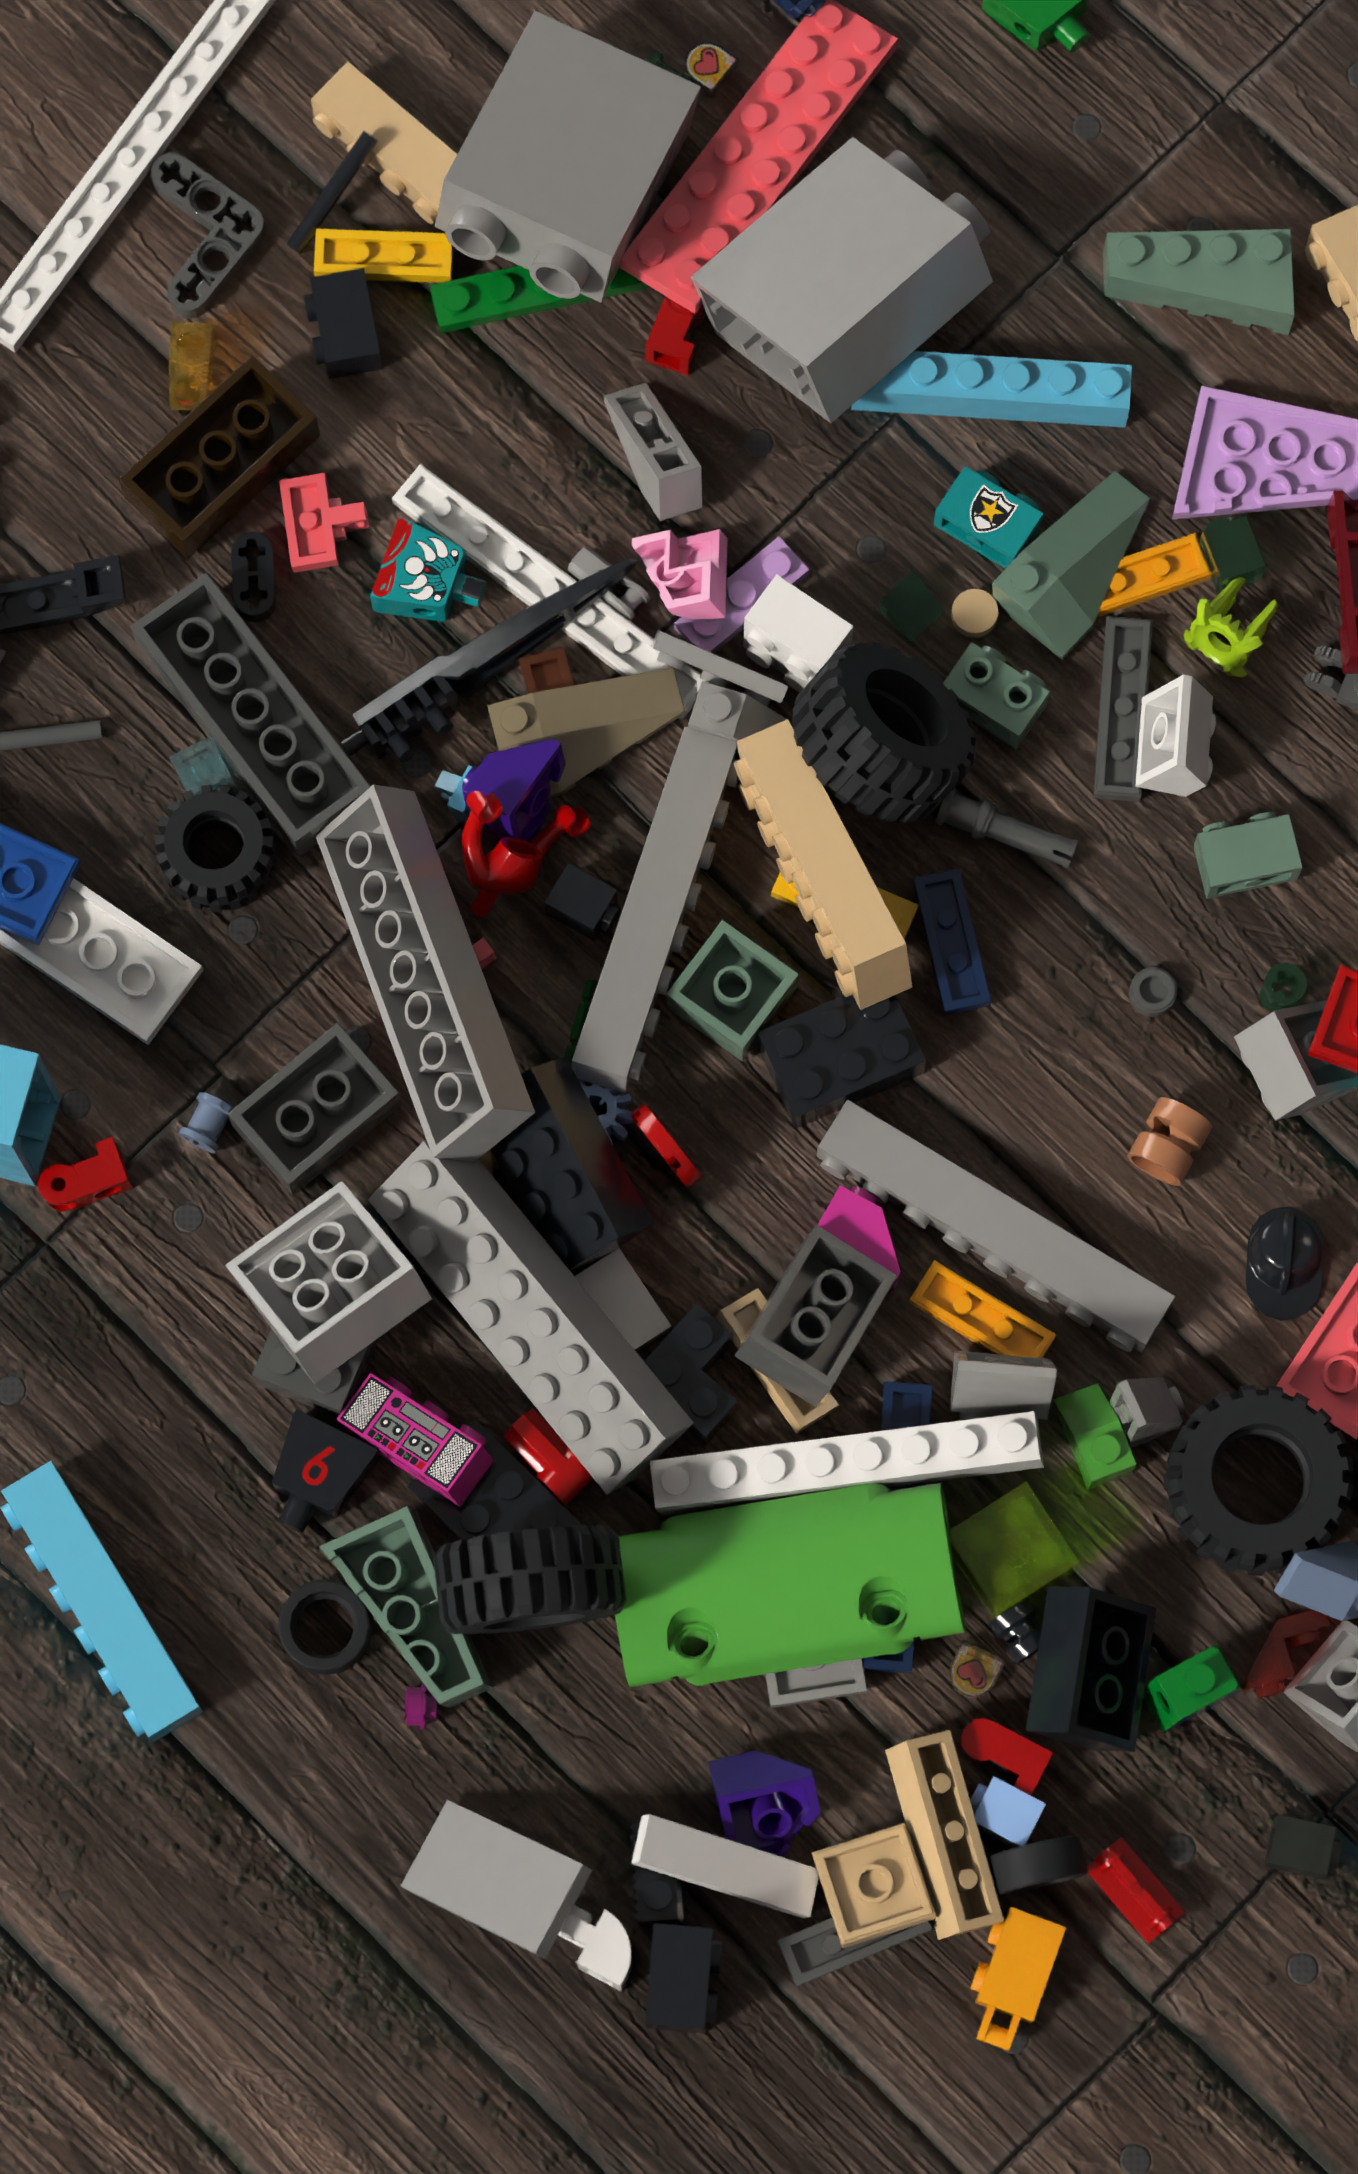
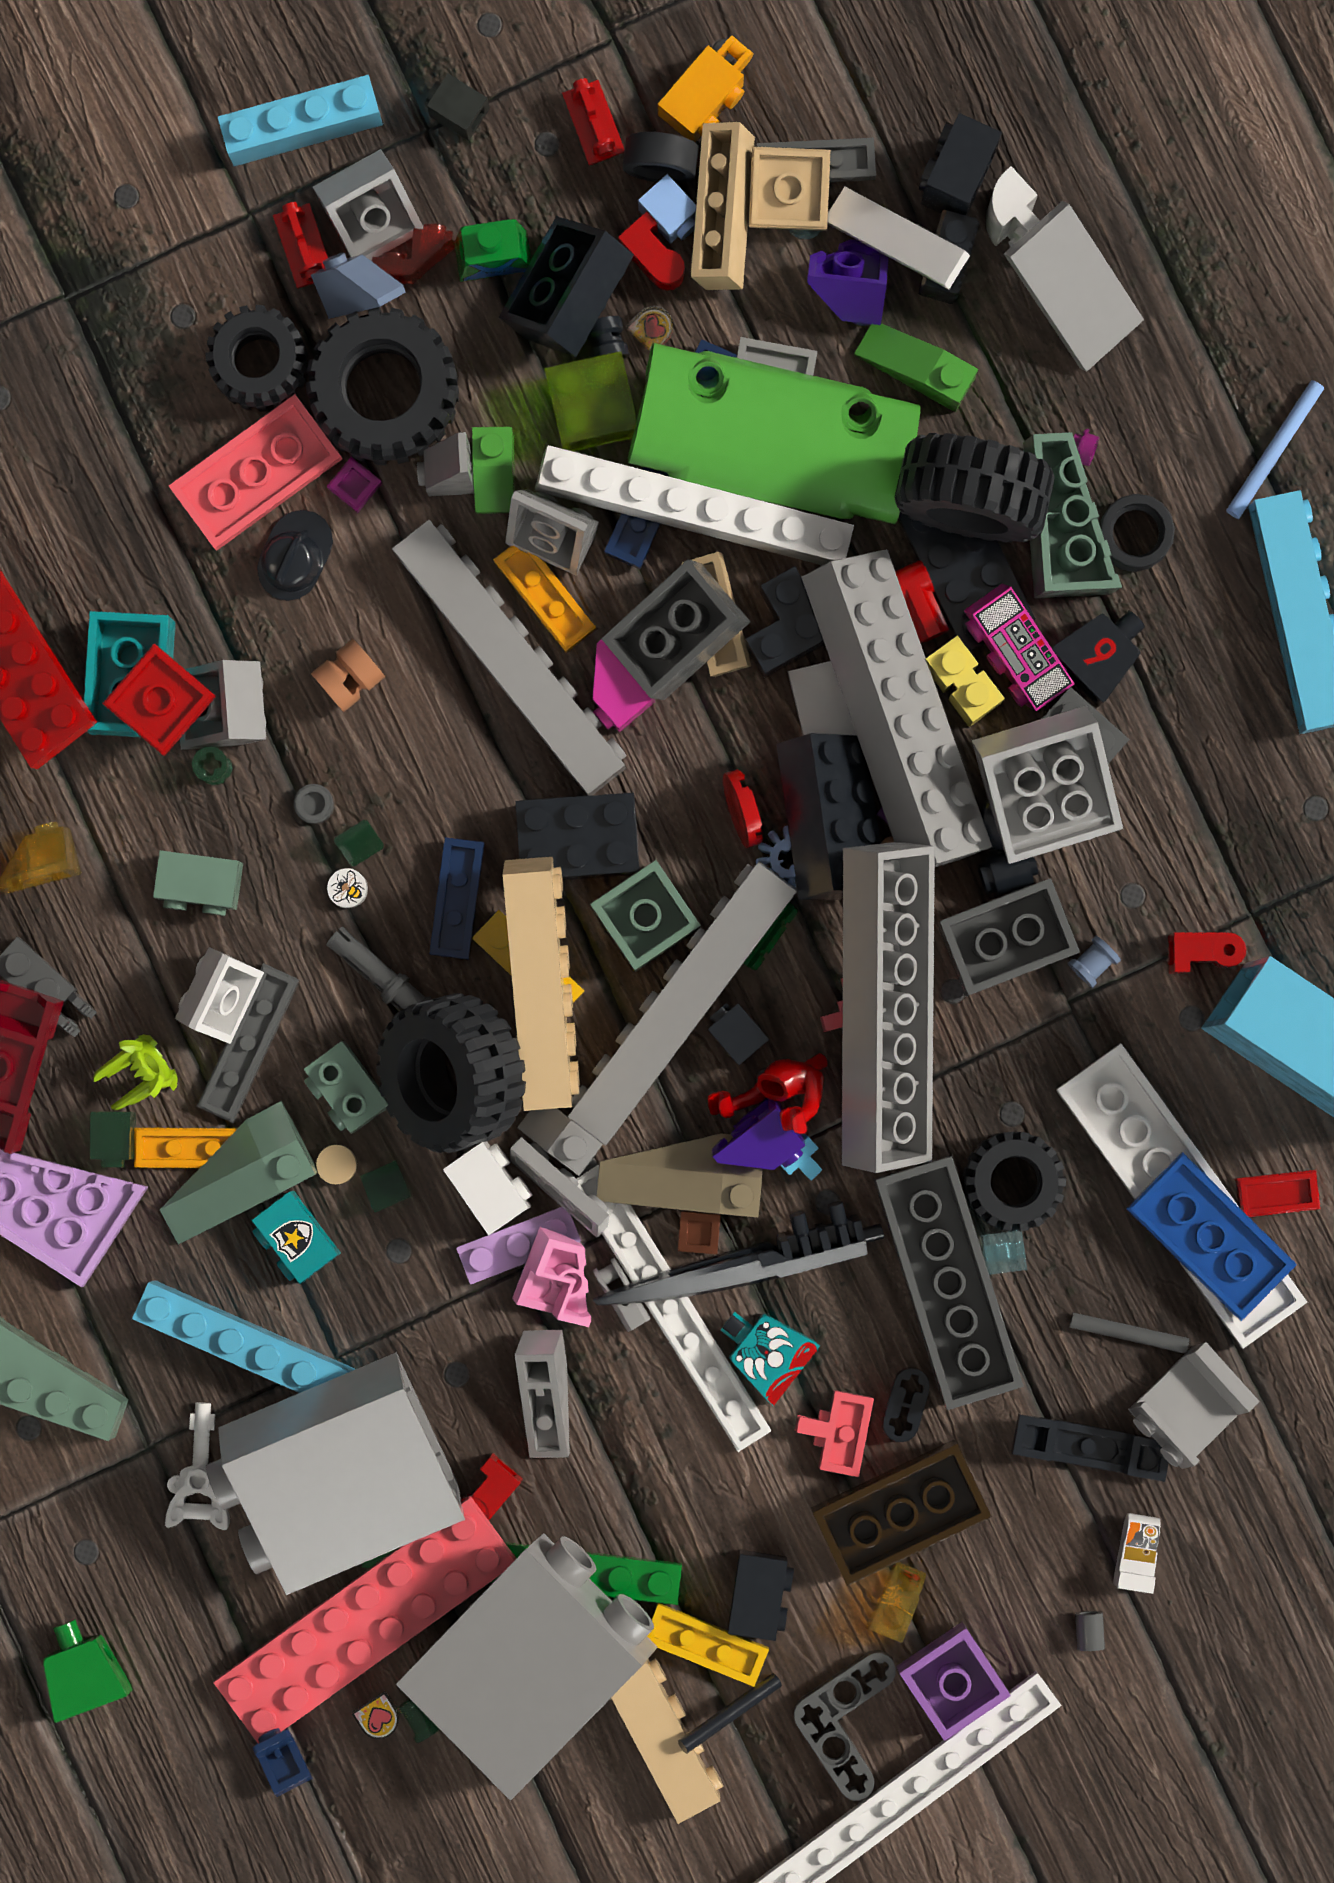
camera: 155 degrees left, 10 degrees up
(102, 304) = (953, 1681): none -> medium lavender brick
(194, 1788) = (1275, 449): none -> light blue bar
(350, 1171) = (1003, 877): none -> black brick
(482, 1390) = (975, 693): none -> light yellow piece
(648, 1733) = (917, 364): none -> bright green slope
(1002, 239) = (194, 1478): none -> white piece
(1079, 912) = (347, 888): none -> tile
(1085, 965) = (359, 842): none -> clear green slope
(1248, 1363) = (354, 484): none -> magenta tile

